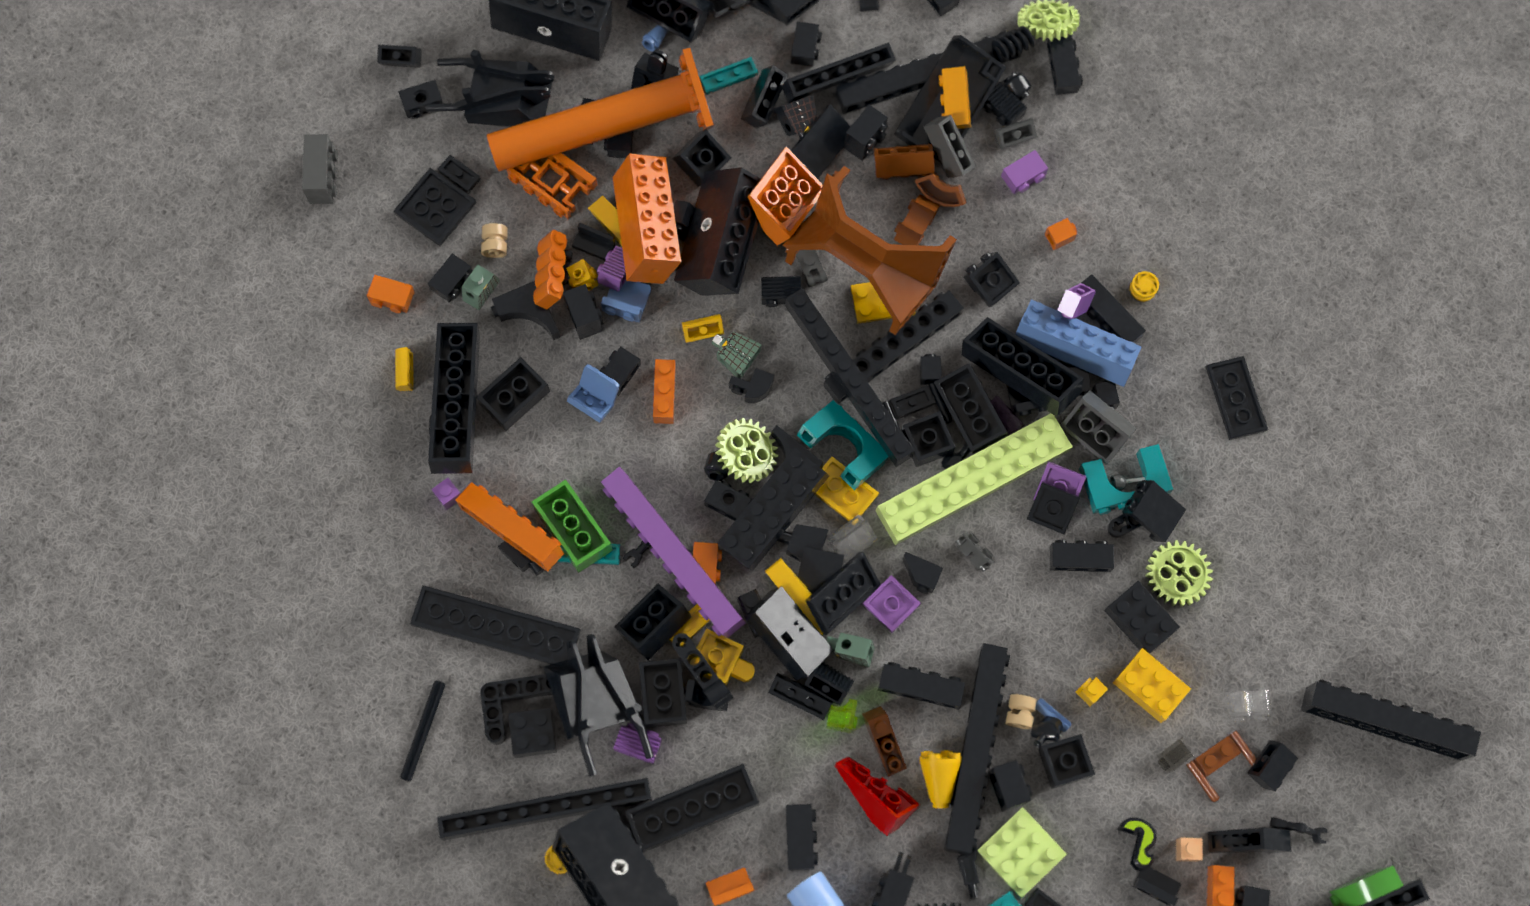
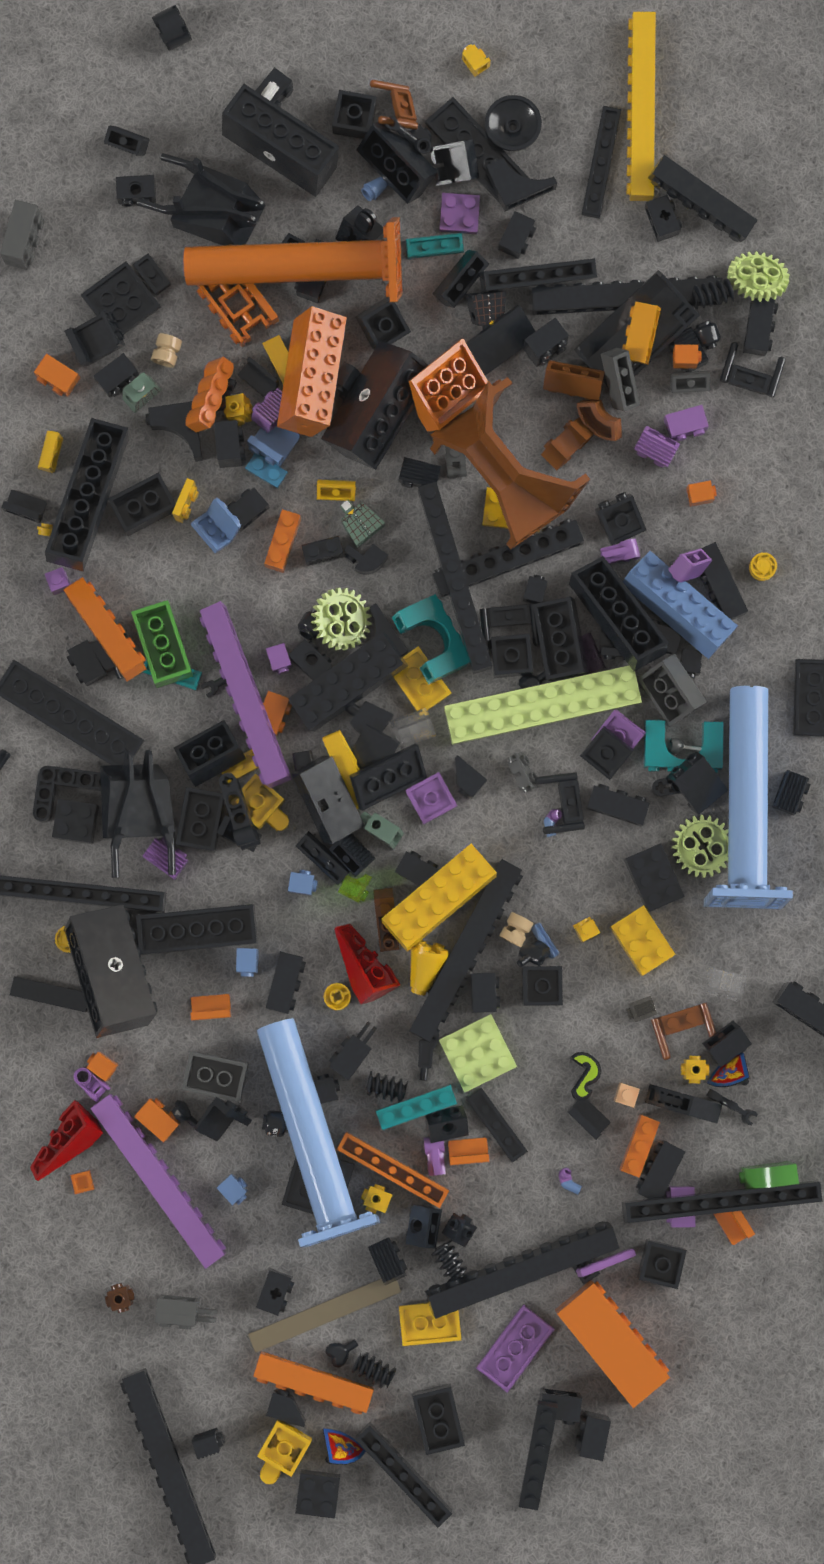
camera: 20 degrees right, 10 degrees up
(392, 430) = (24, 506): none -> black panel
(420, 247) = (95, 338): none -> black panel
(420, 446) = (45, 529): none -> yellow plate
(499, 568) = (86, 662): none -> black brick
(556, 373) = (188, 494): none -> yellow plate
(628, 330) = (271, 474): none -> dark azure plate
(695, 508) = (279, 658): none -> medium lavender brick
(707, 389) = (322, 550): none -> black brick
(743, 39) = (459, 213): none -> medium lavender plate
(755, 825) = (247, 961): none -> medium blue brick
(787, 728) = (302, 883): none -> medium blue brick
(858, 836) = (337, 996): none -> yellow wheel
(934, 699) = (439, 897): none -> yellow brick
(1003, 309) = (621, 552): none -> medium lavender piece
(1004, 201) = (656, 446): none -> medium lavender brick
(1005, 108) = (686, 356): none -> orange brick
(1018, 592) = (552, 818): none -> arm
(1032, 568) = (570, 802): none -> black plate
(1071, 116) = (749, 378): none -> black plate
(1215, 523) = (748, 807): none -> light blue piece
(1242, 804) = (687, 1066): none -> yellow brick
(1247, 495) = (791, 792): none -> black brick
(1287, 795) = (731, 1073): none -> shield

